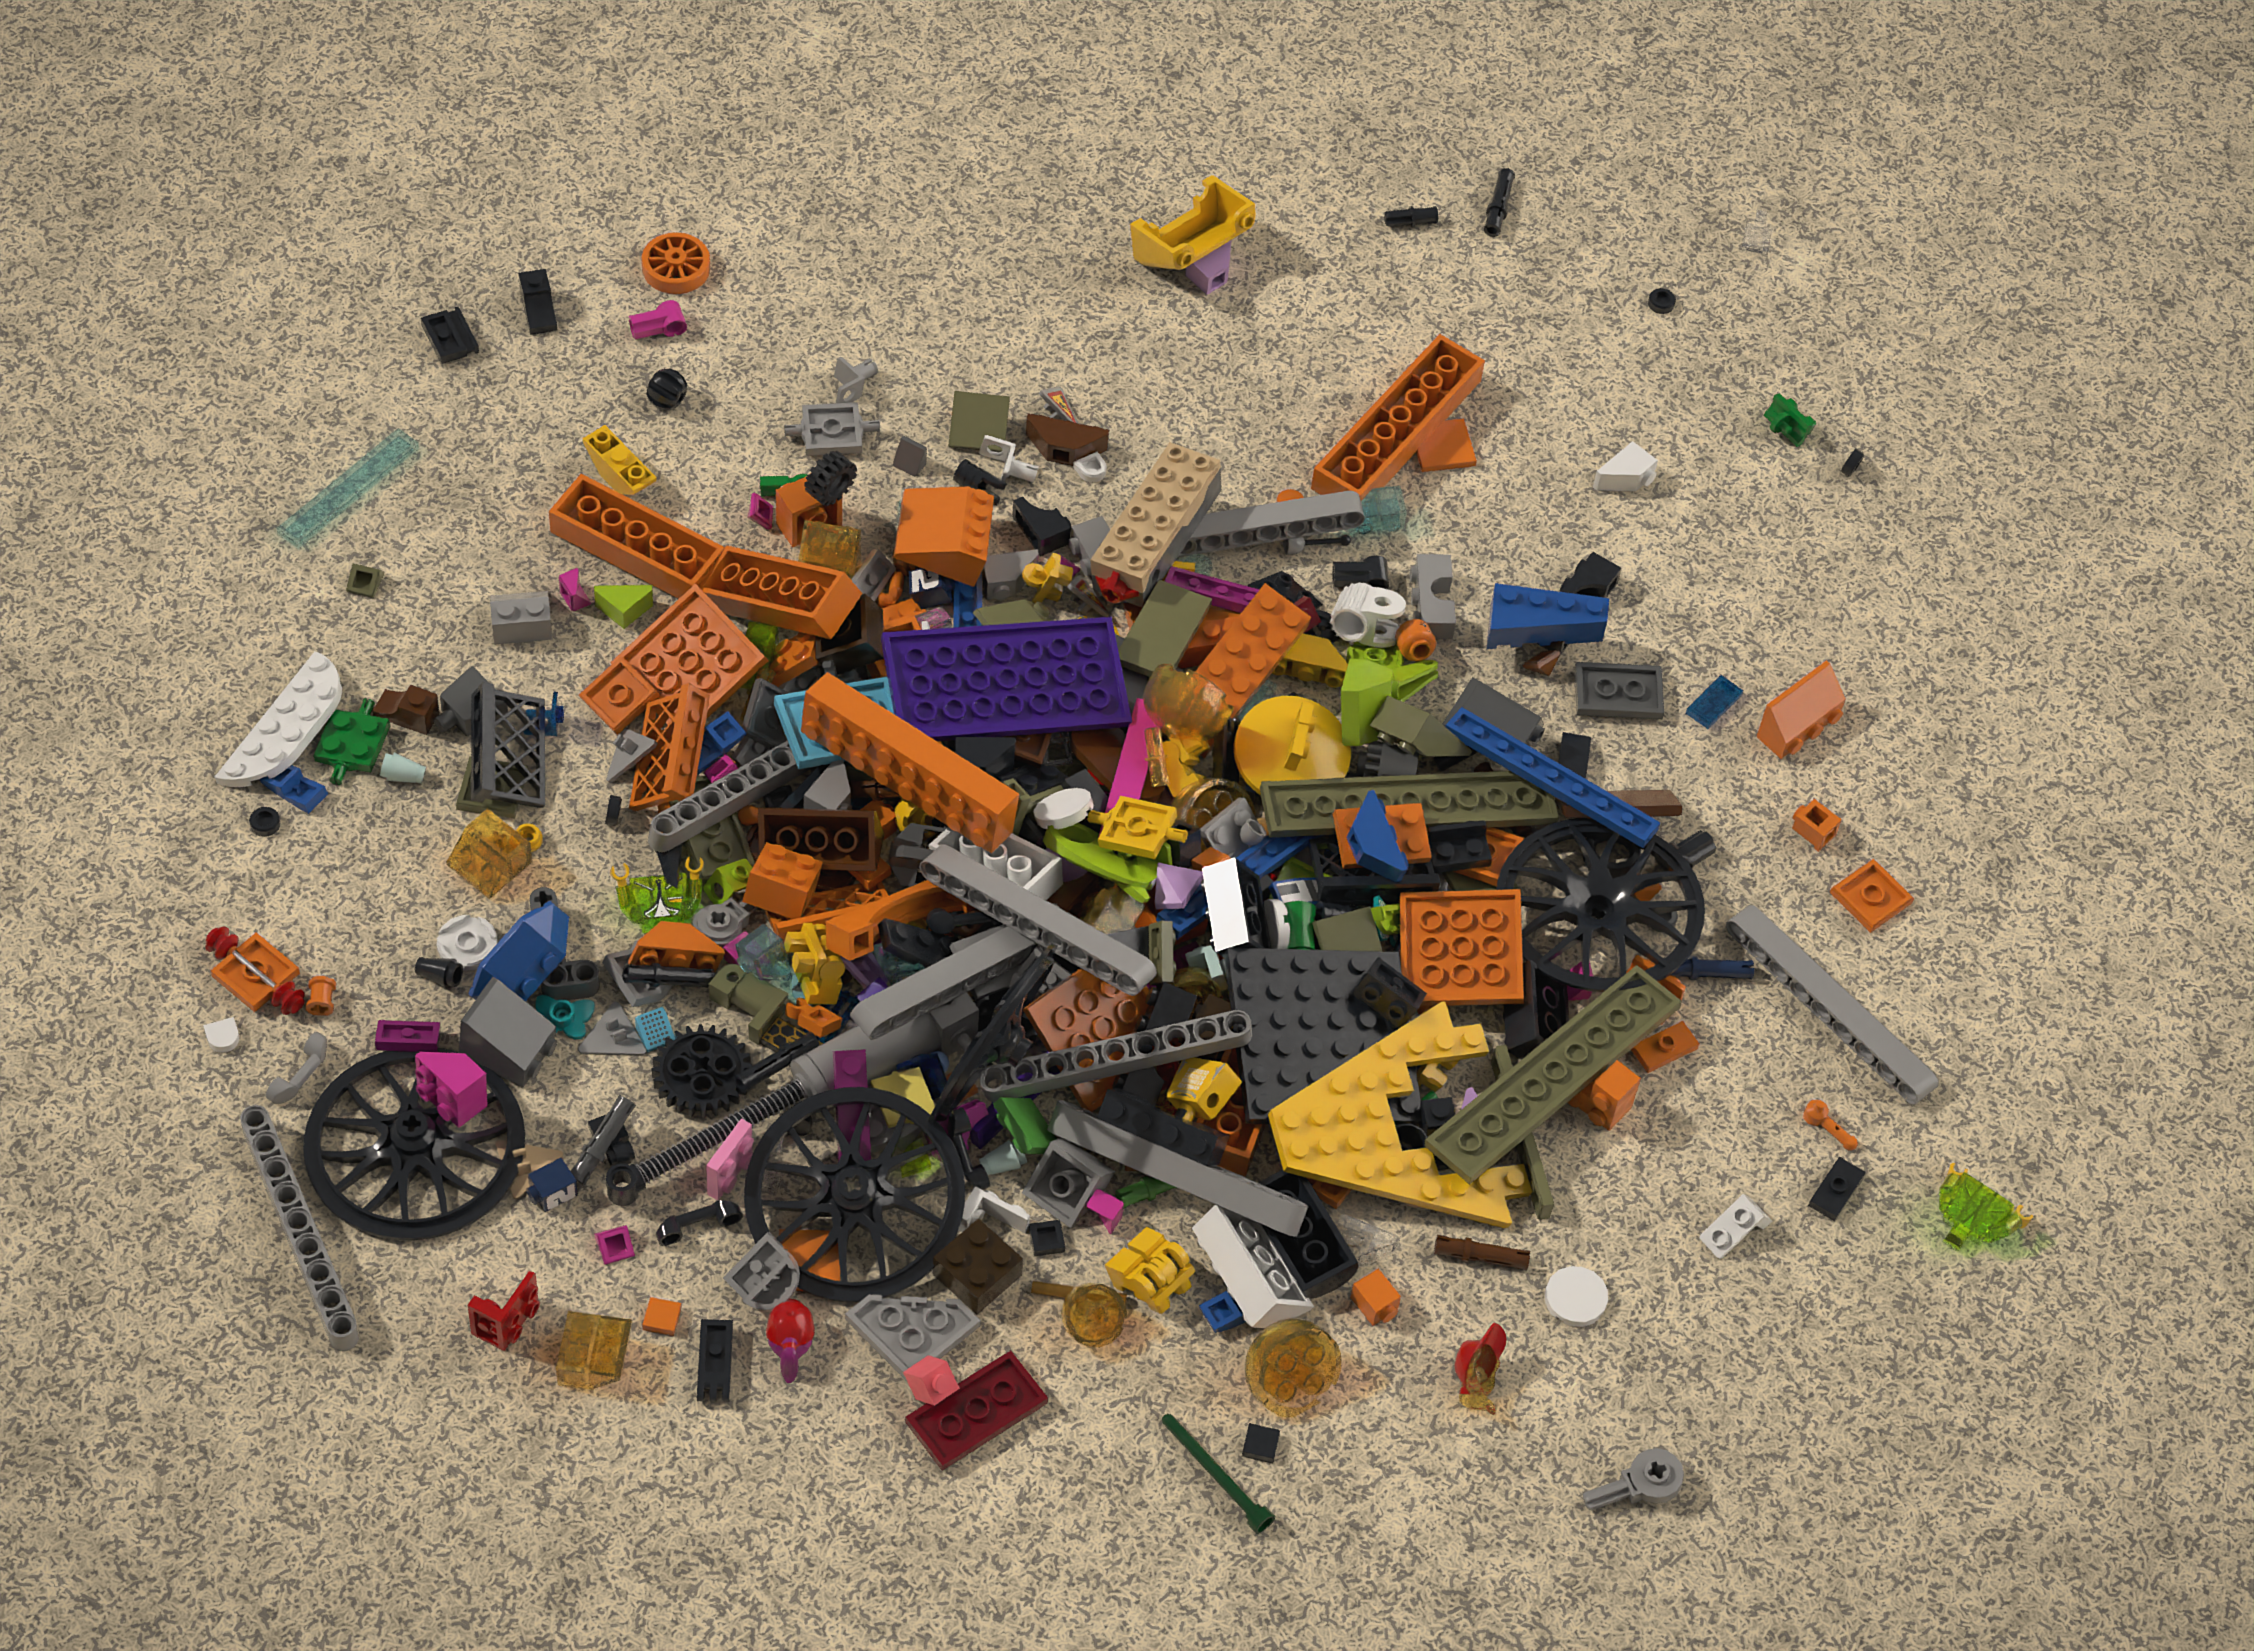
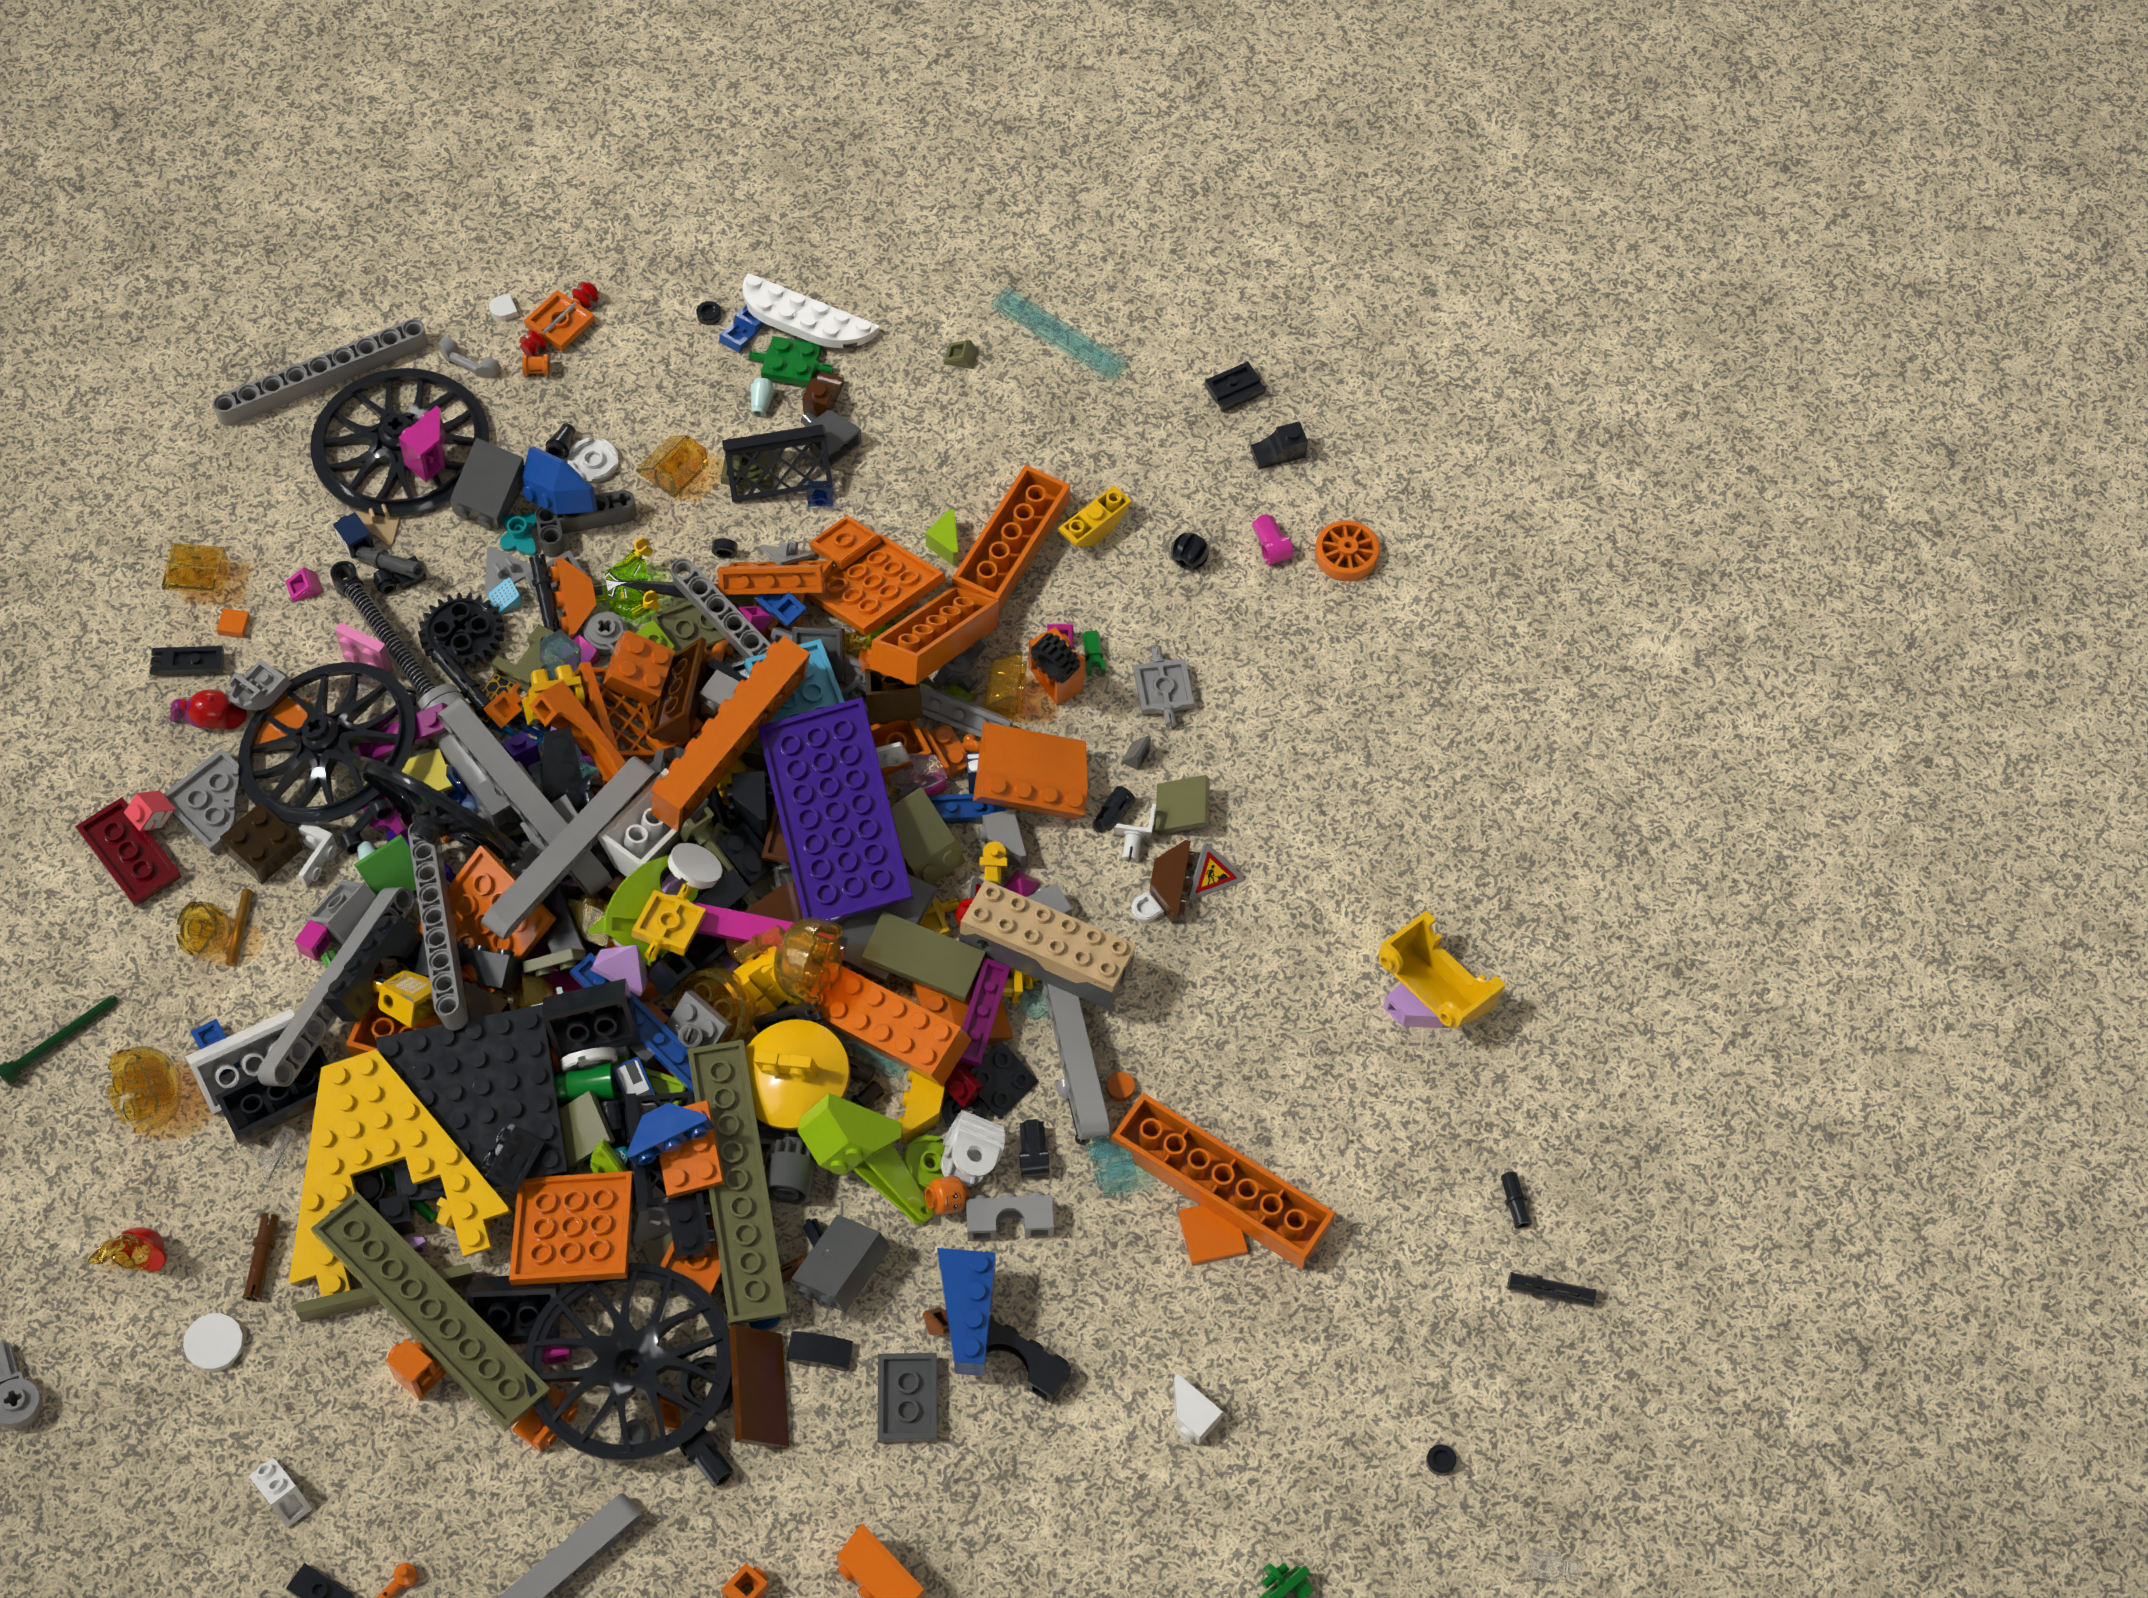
camera: 90 degrees right, 5 degrees up
(407, 1036) = (497, 424): magenta plate -> none
(504, 1325) = (223, 508): red bracket -> none
(520, 617) = (929, 463): light grey slope -> none
(533, 832) = (696, 485): yellow plate -> none
(572, 591) = (959, 499): dark pink slope -> none
(725, 1211) = (312, 621): black bar -> none
(852, 378) = (1226, 699): light grey bracket -> none
(1043, 528) = (1060, 863): black arch -> none
(1047, 1238) = (294, 900): black tile -> none
(1151, 1269) = (248, 975): yellow hips -> none
(1207, 858) = (658, 1002): orange slope -> none
(1261, 1443) = (83, 1074): black tile -> none
(1376, 1297) = (215, 1164): orange brick -> none
(1415, 731) = (810, 1184): olive slope -> none
(1553, 777) = (762, 1308): blue plate -> none
(1665, 1047) = (484, 1434): orange plate -> none
(1697, 968) = (572, 1482): dark blue pin -> none
(1714, 701) = (903, 1496): tile -> none

